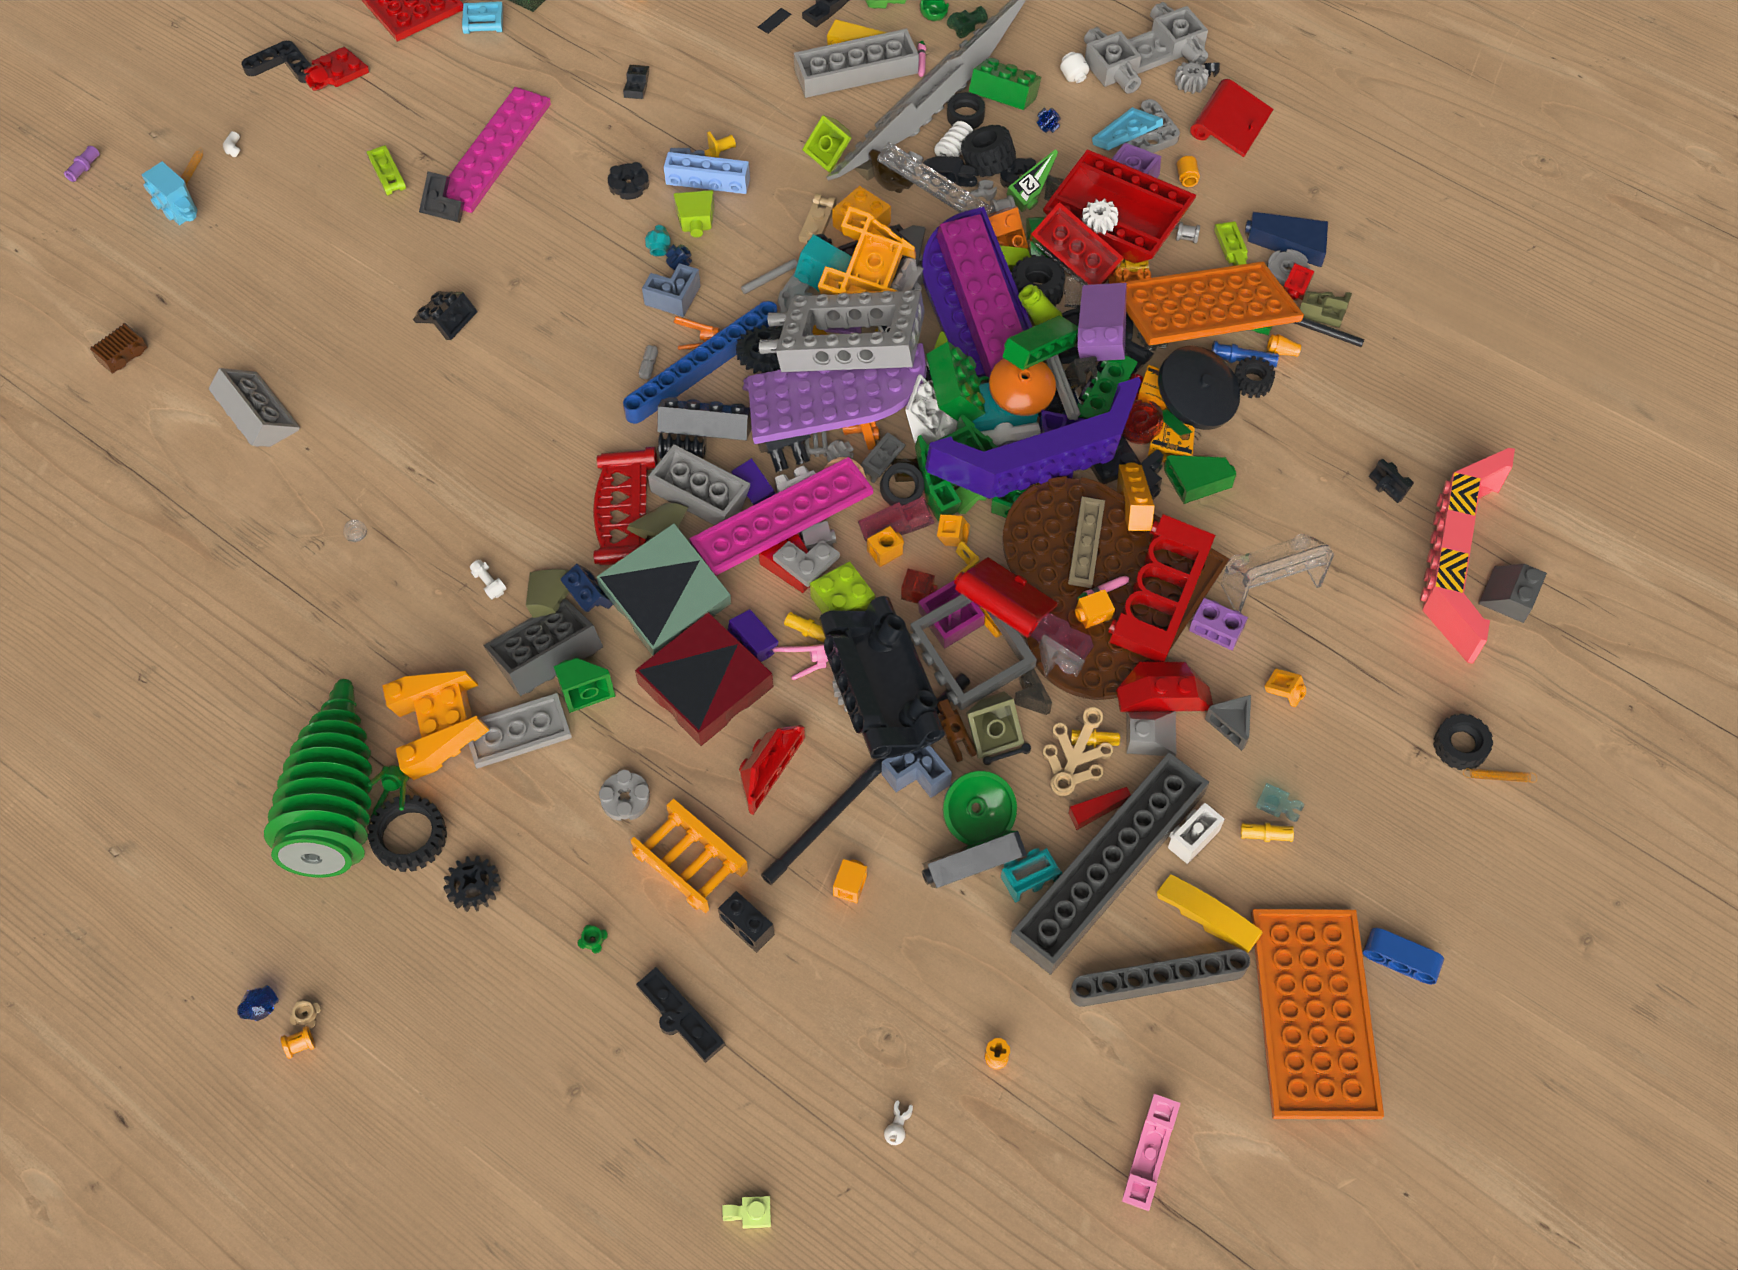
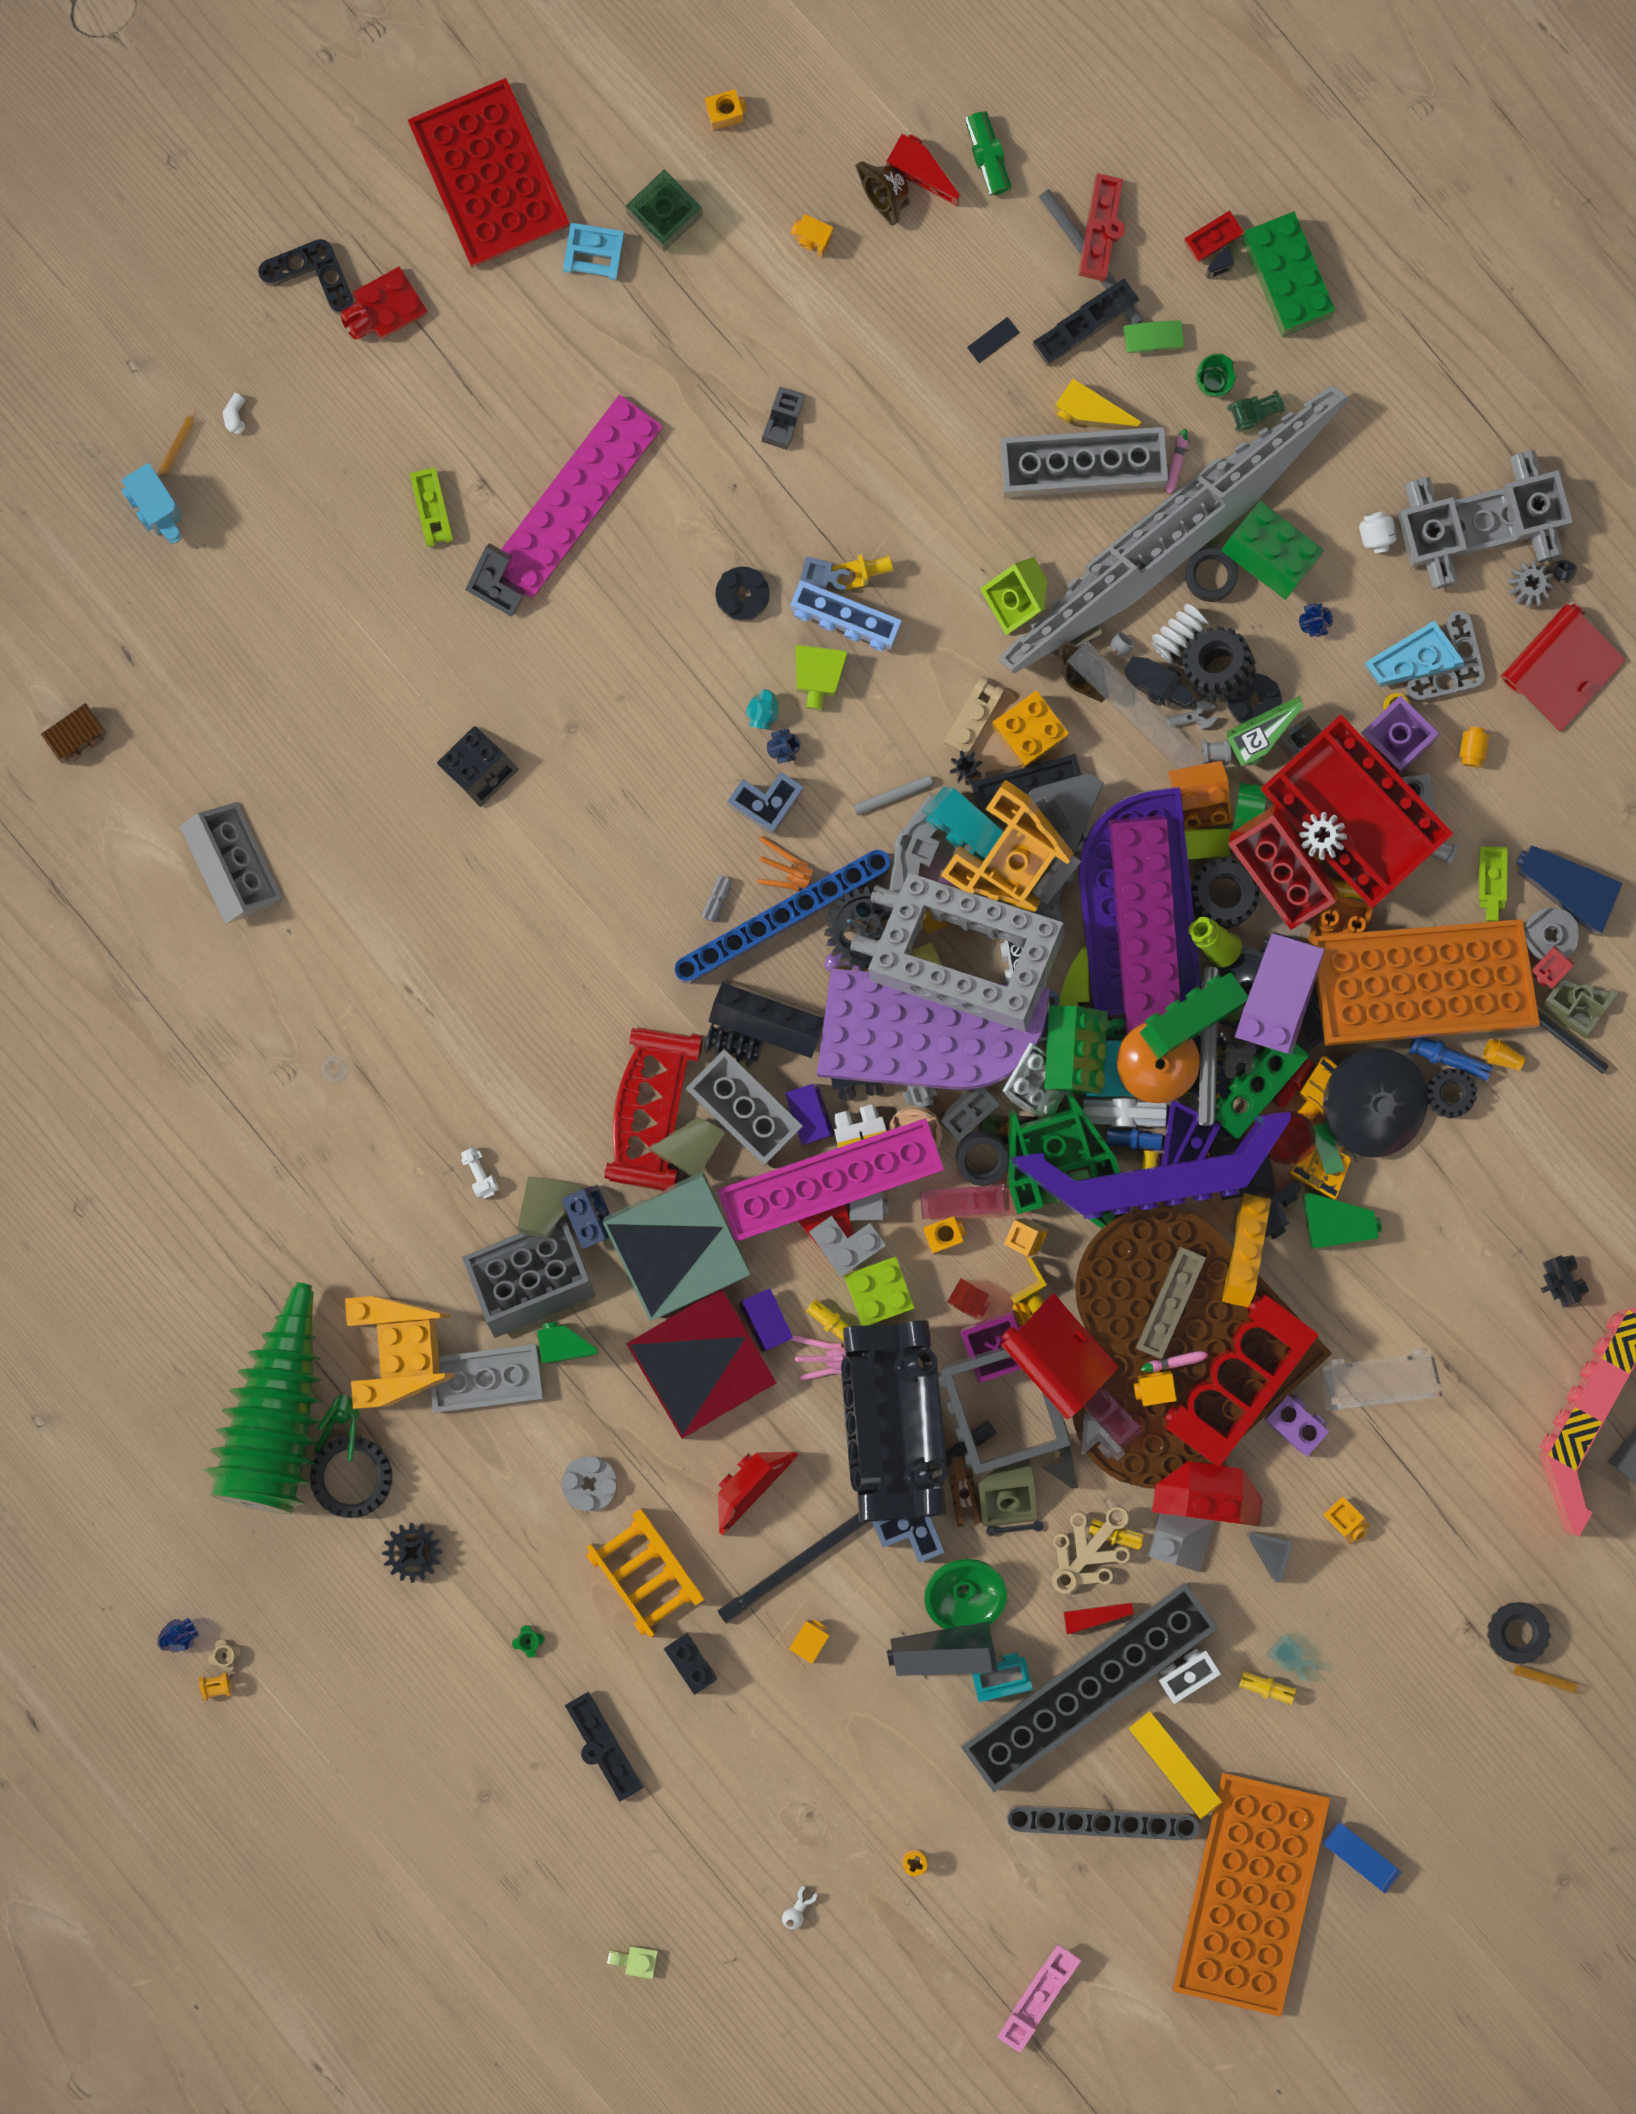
camera: 15 degrees right, 25 degrees up
(81, 163) = (38, 406): medium lavender pin -> none

